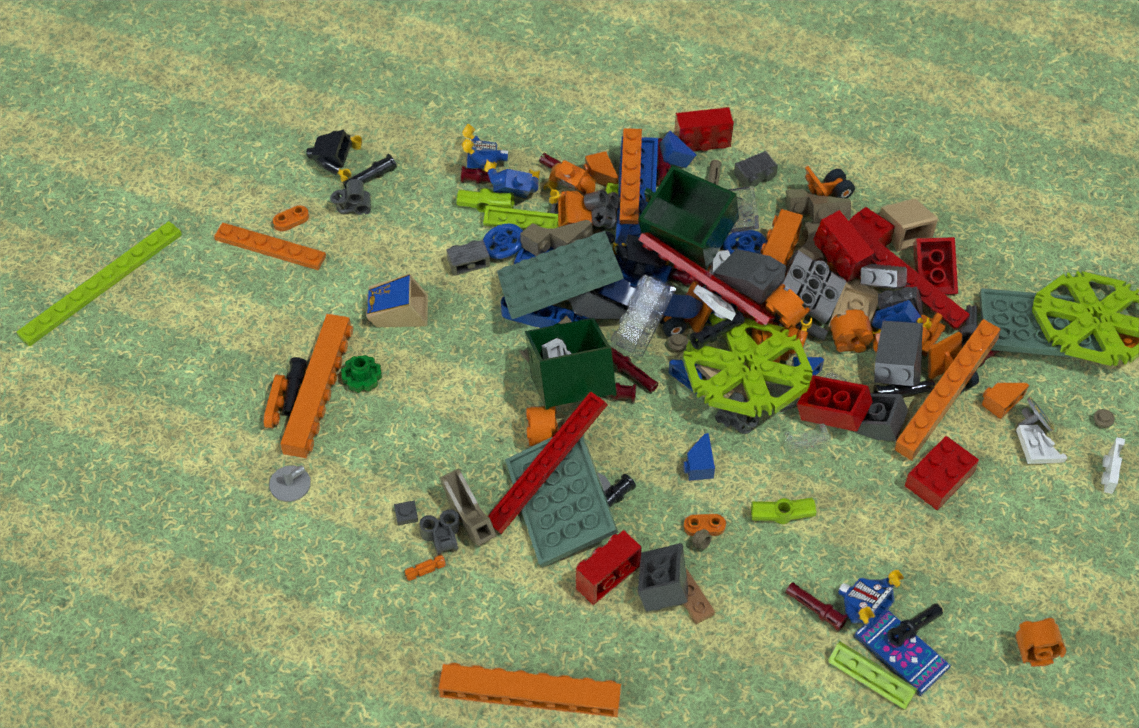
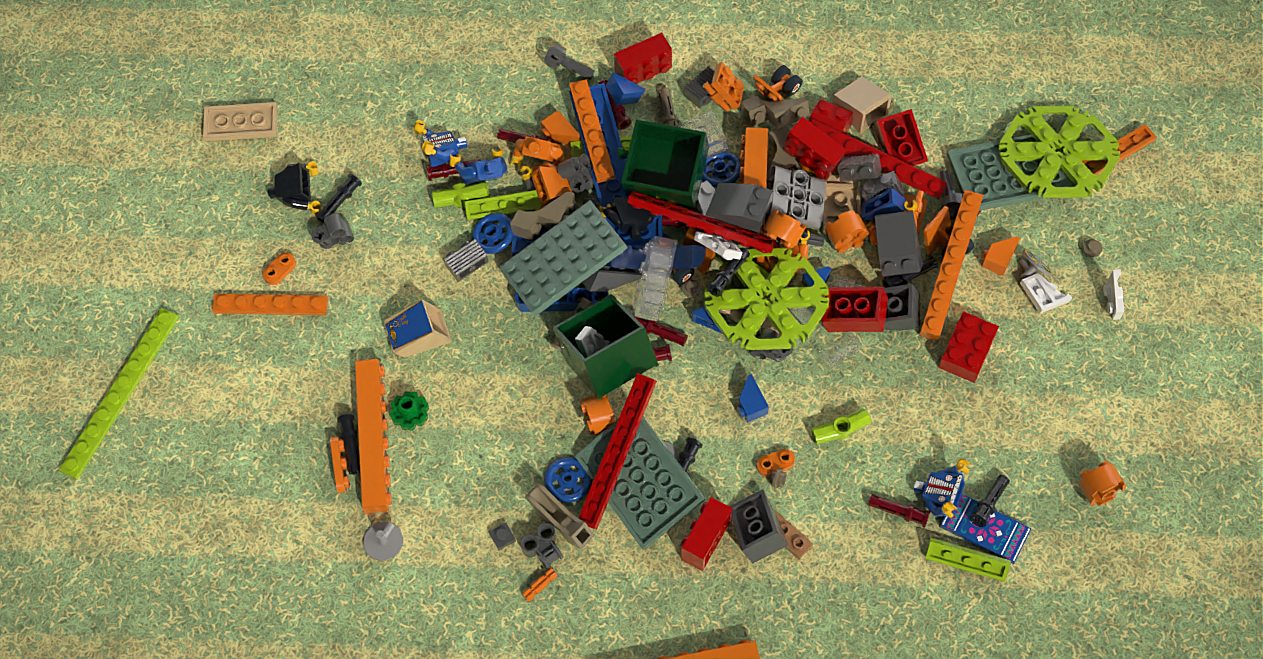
camera: 15 degrees left, 10 degrees up
(306, 86) = (240, 121): none -> tan plate
(477, 490) = (559, 493): none -> blue plate
(623, 109) = (566, 62): none -> dark grey piece
(777, 174) = (726, 88): none -> orange plate

